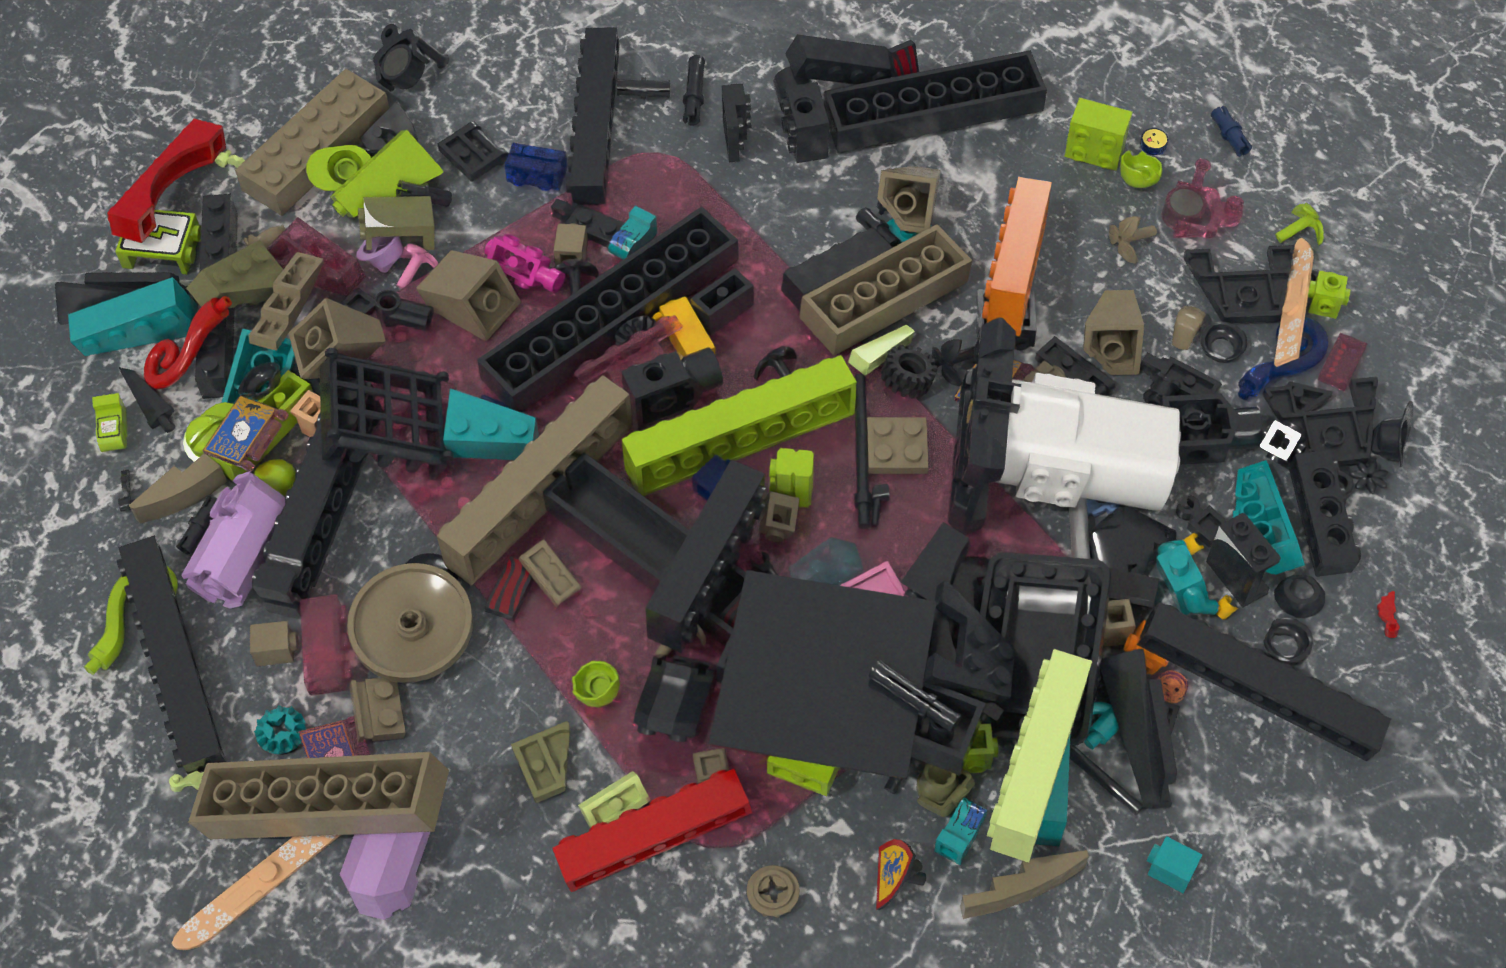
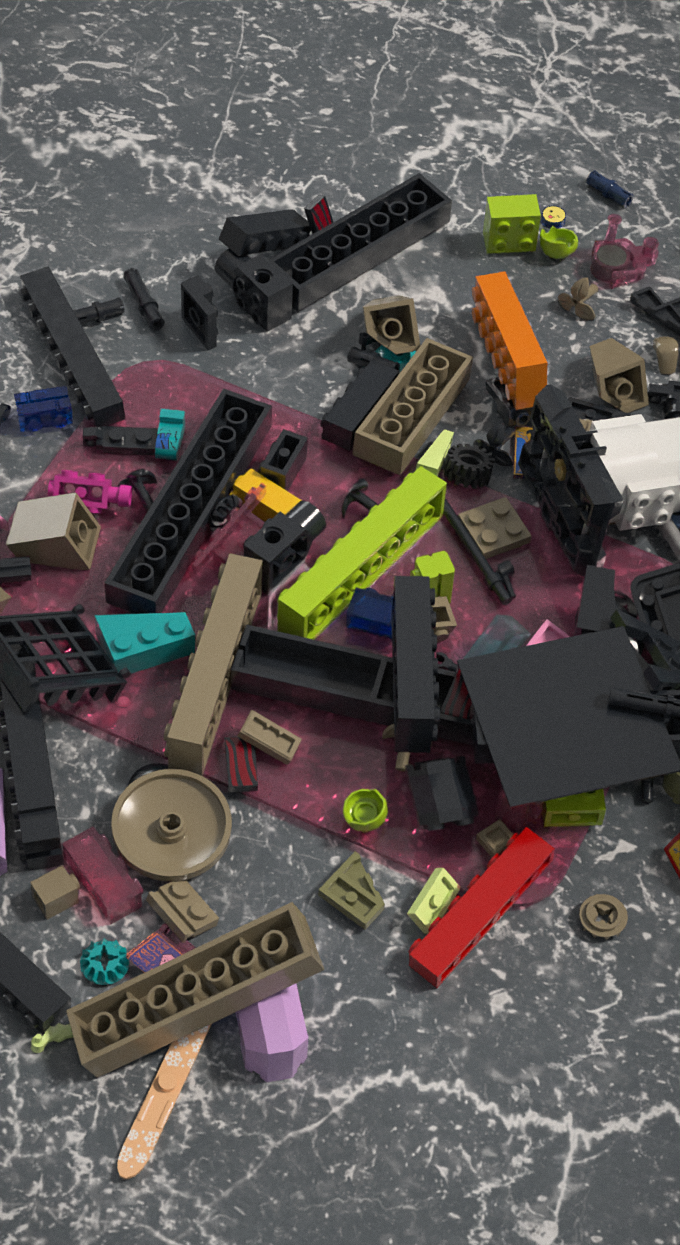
camera: 30 degrees left, 5 degrees down
(570, 242) = (118, 461): dark tan brick -> none

